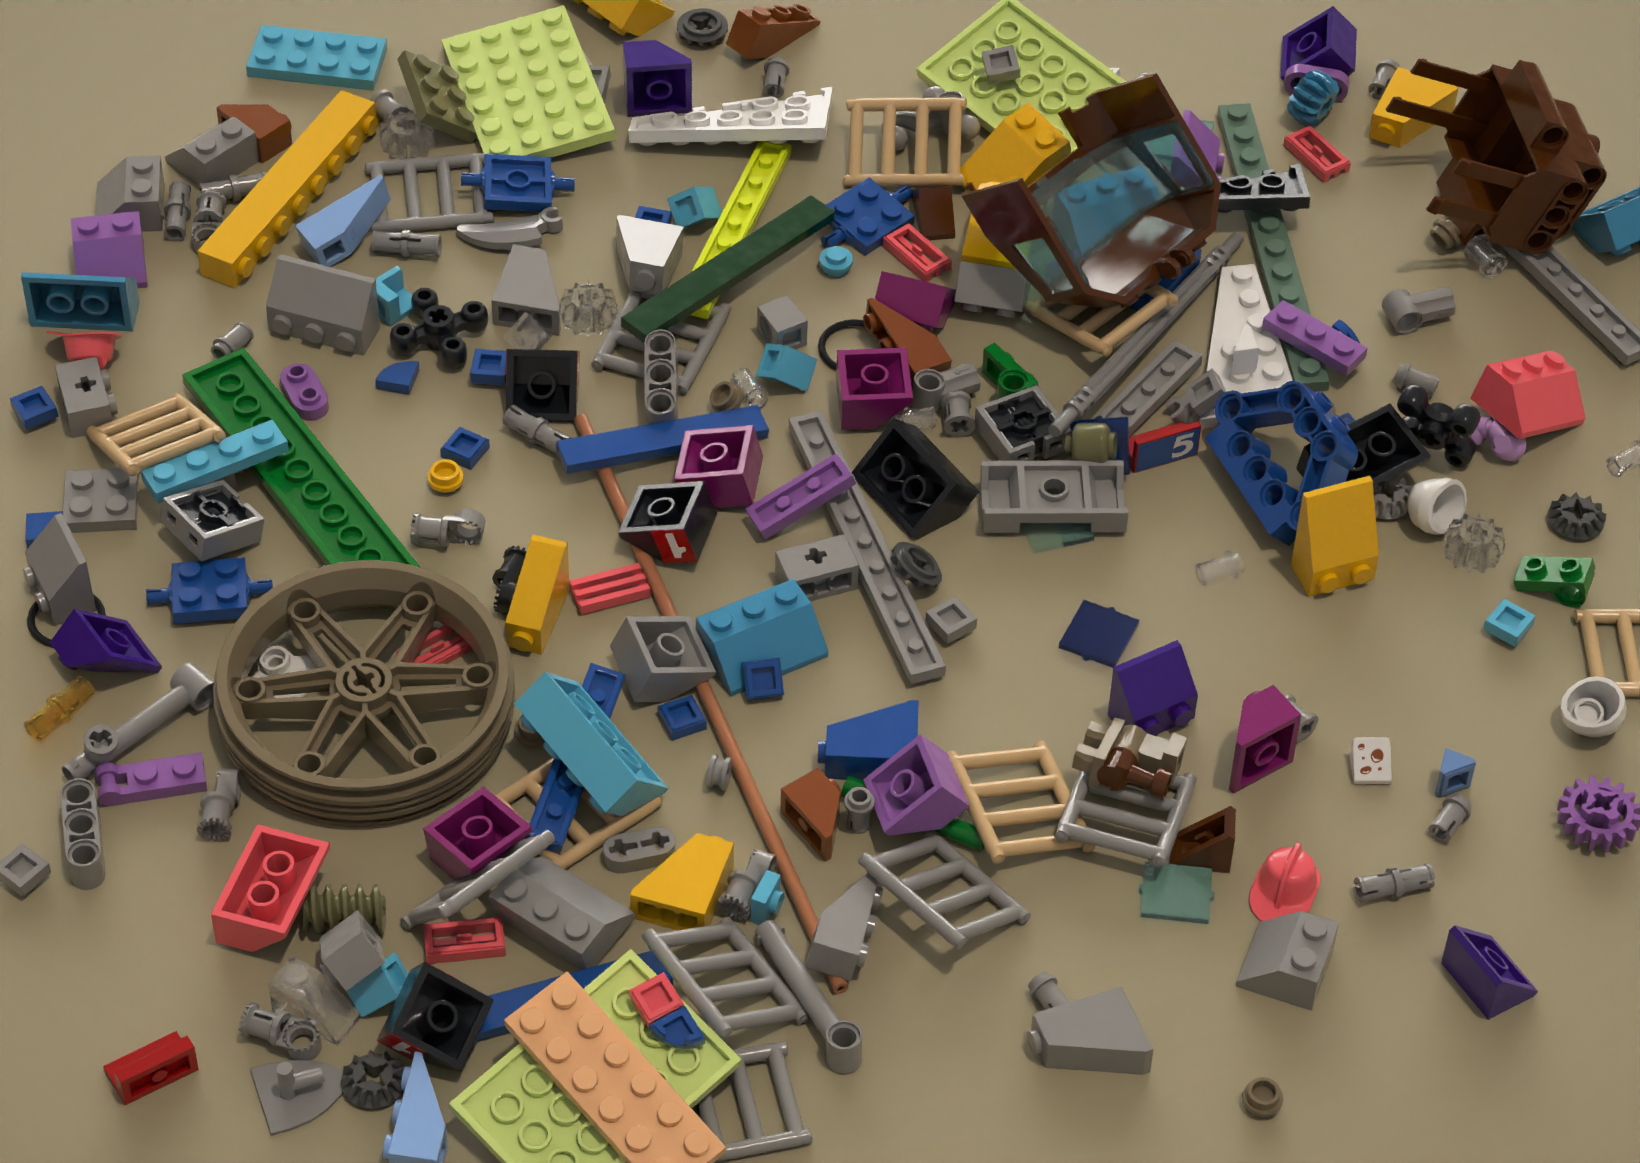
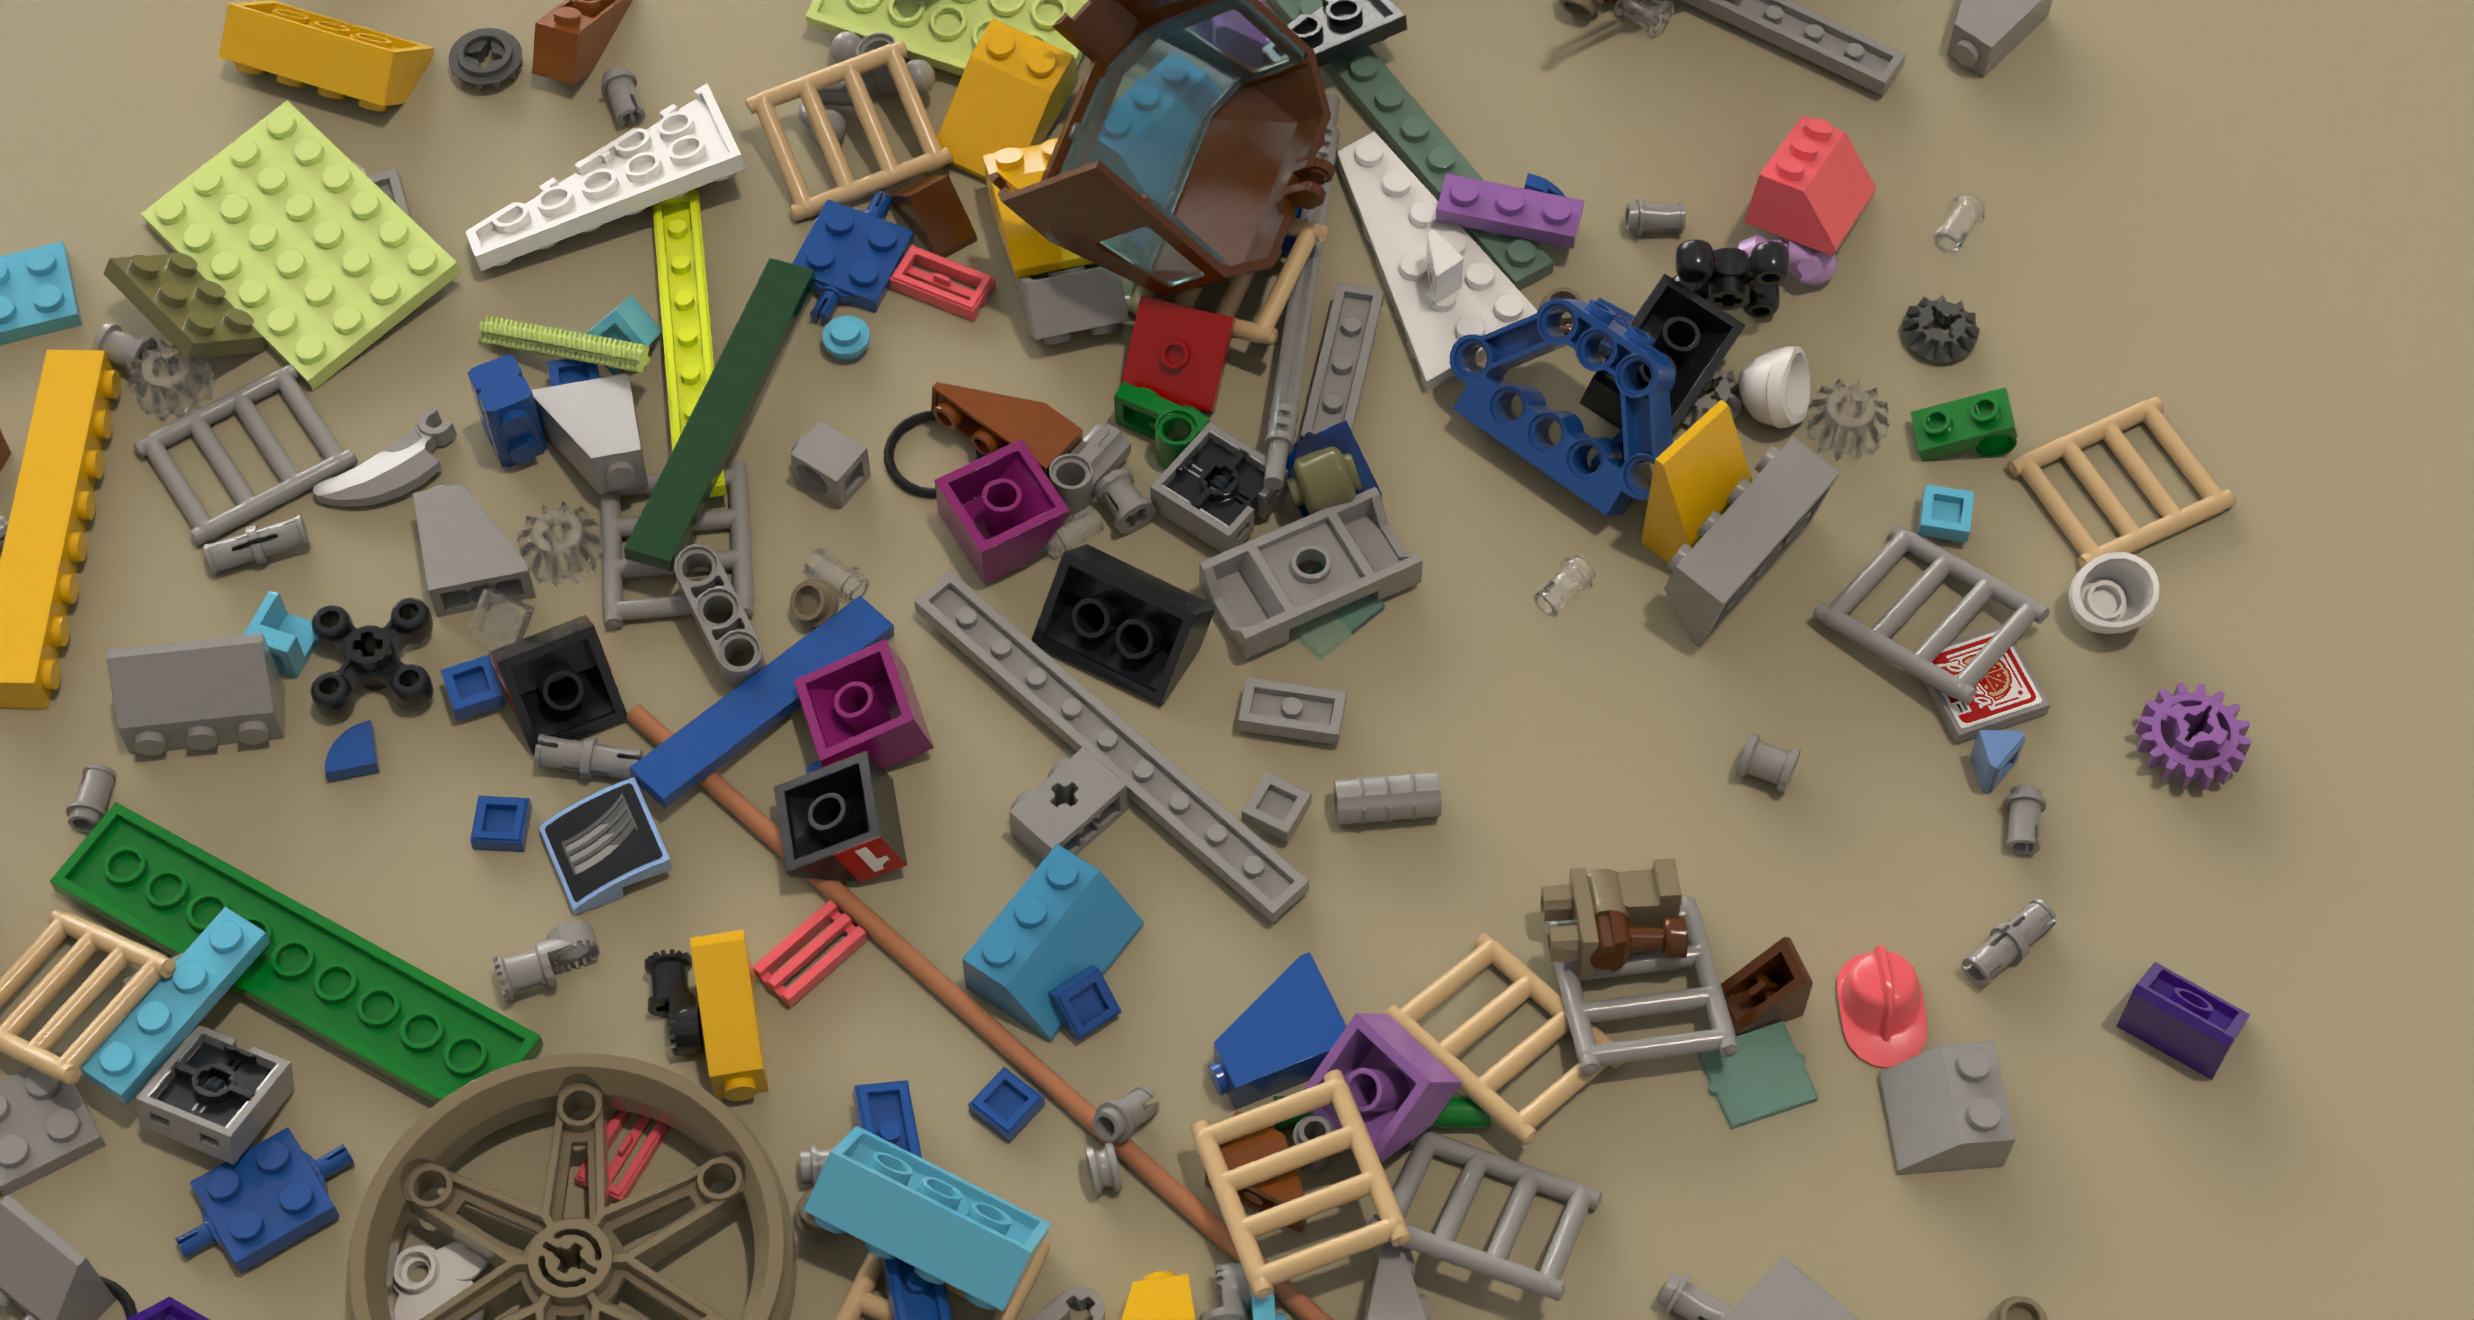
camera: 25 degrees left, 10 degrees up
(304, 391) = (230, 827): medium lavender plate -> none
(343, 224) = (155, 558): light blue slope -> none
(445, 476) = (499, 880): yellow plate -> none
(517, 182) = (362, 391): blue plate -> none
(519, 481) = (604, 845): none -> slope
(596, 220) = (507, 411): none -> blue brick
(655, 198) = (564, 344): none -> yellowish green axle
(656, 79) = (472, 165): dark purple slope -> none
(660, 656) = (939, 1032): light grey slope -> none
(742, 746) = (1117, 1119): none -> light grey pin
(787, 366) = (868, 524): medium azure panel -> none
(800, 496) = (994, 712): medium lavender plate -> none
(873, 832) = (1245, 1229): none -> tan bar
(916, 299) = (984, 355): magenta slope -> none
(916, 565) = (1177, 743): dark grey gear -> none
(994, 570) = (1292, 710): none -> light grey plate
(1026, 641) = (1387, 798): none -> light grey axle
(1042, 340) = (1179, 352): none -> red plate
(1098, 633) = (1465, 742): clear blue piece -> none
(1154, 690) = (1592, 809): dark purple slope -> none
(1164, 445) = (1402, 436): panel -> none
(1199, 397) = (1418, 351): light grey plate -> none
(1264, 737) = (1754, 812): magenta slope -> none
(1354, 579) = (1747, 536): none -> light grey slope
(1371, 760) = (1889, 782): white slope -> none
(1409, 311) = (1596, 122): light grey piece -> none
(1472, 728) = (2002, 696): none -> tile
(1487, 651) = (1920, 661): none -> light grey bar

